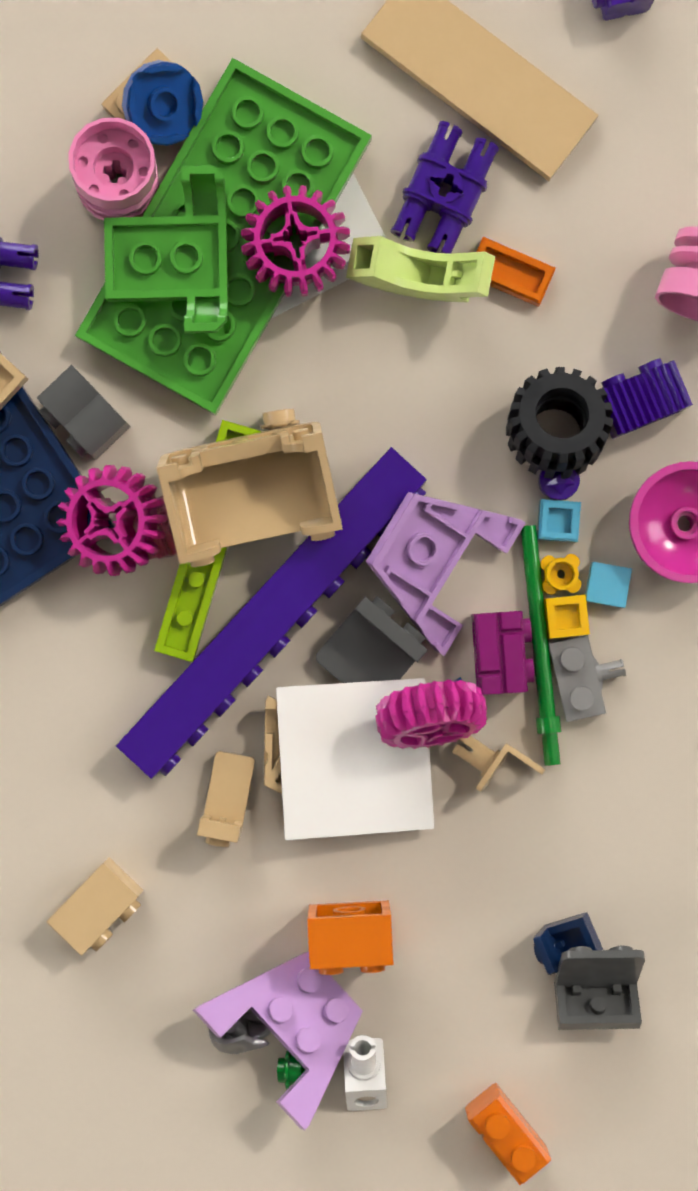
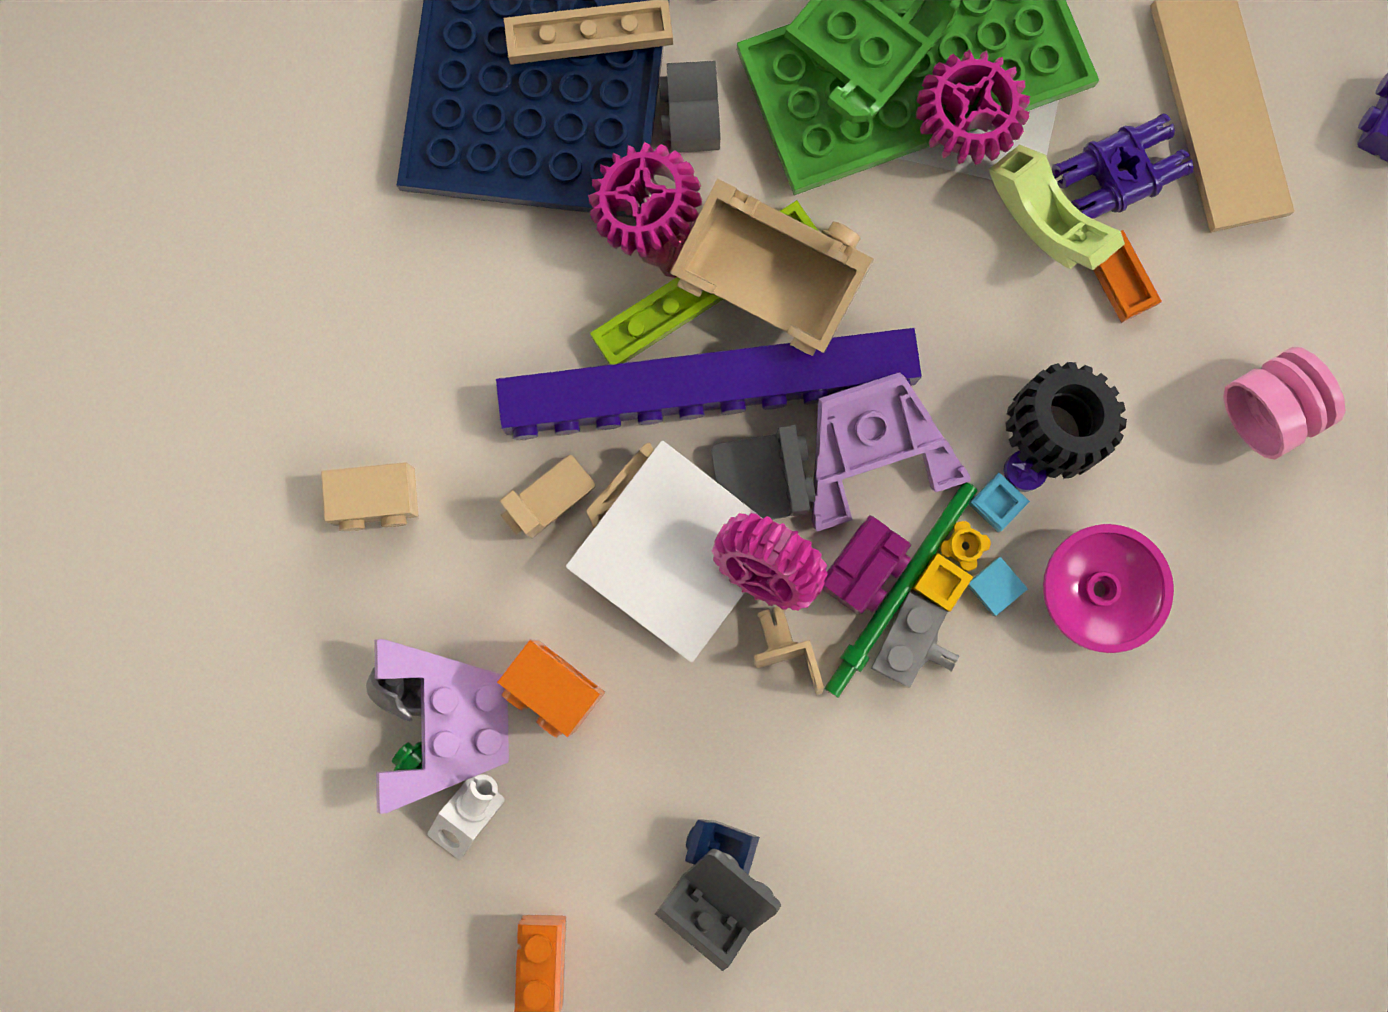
camera: 40 degrees right, 5 degrees down
(645, 397) = (1152, 461): dark purple brick -> none

